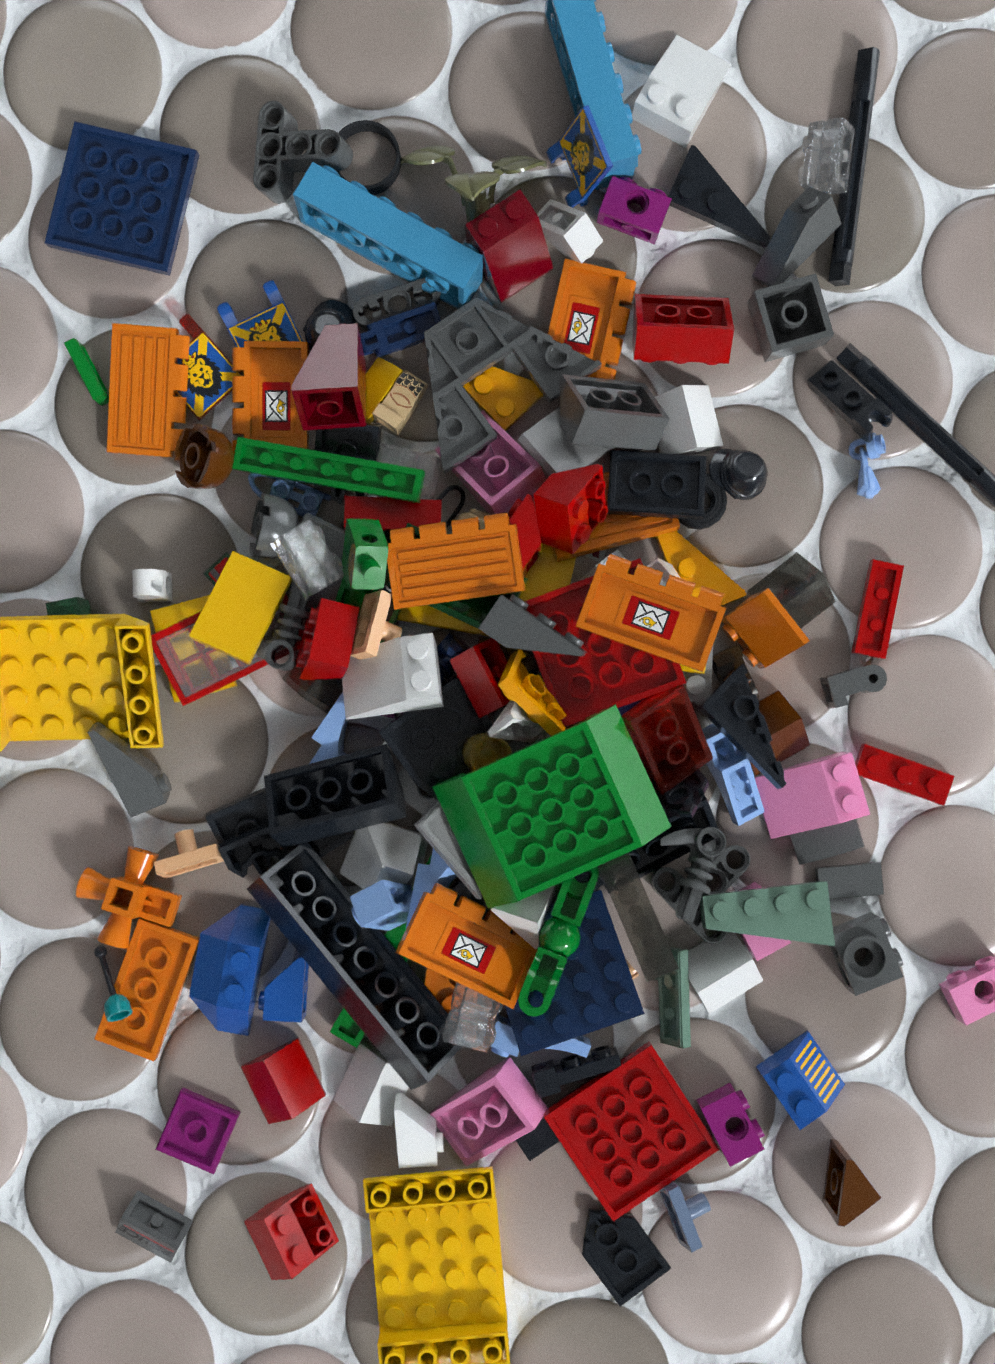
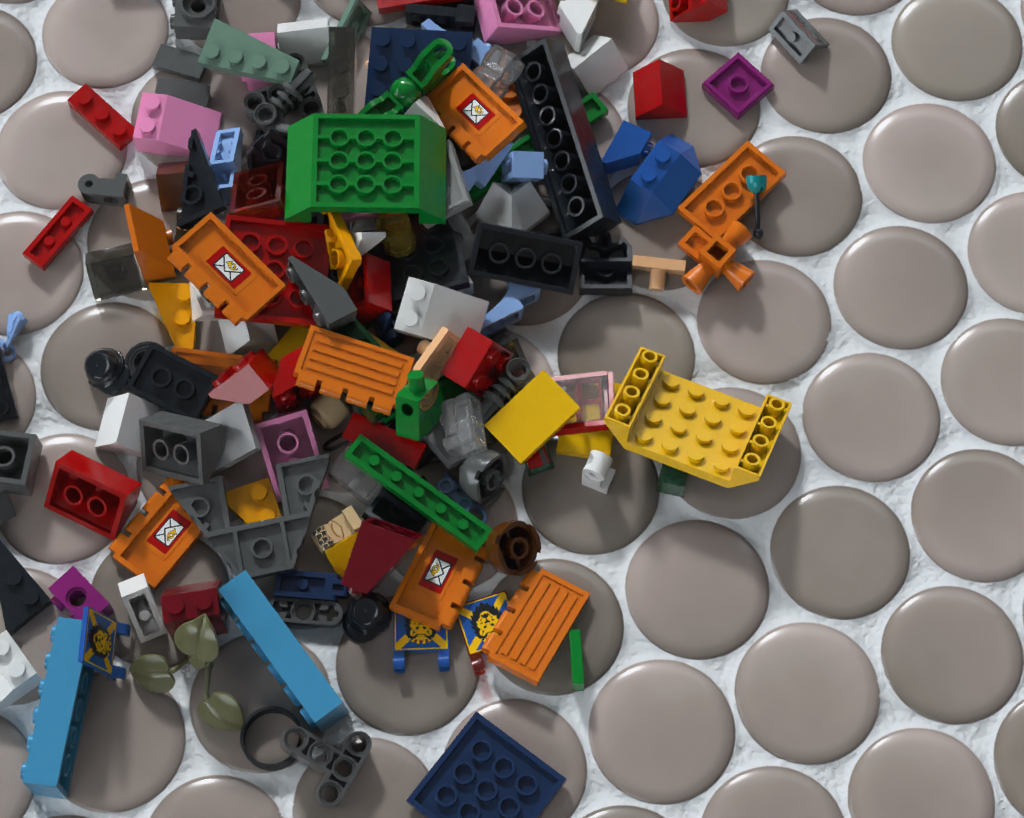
camera: 155 degrees left, 20 degrees down
(133, 774) = (673, 340): dark grey slope -> none

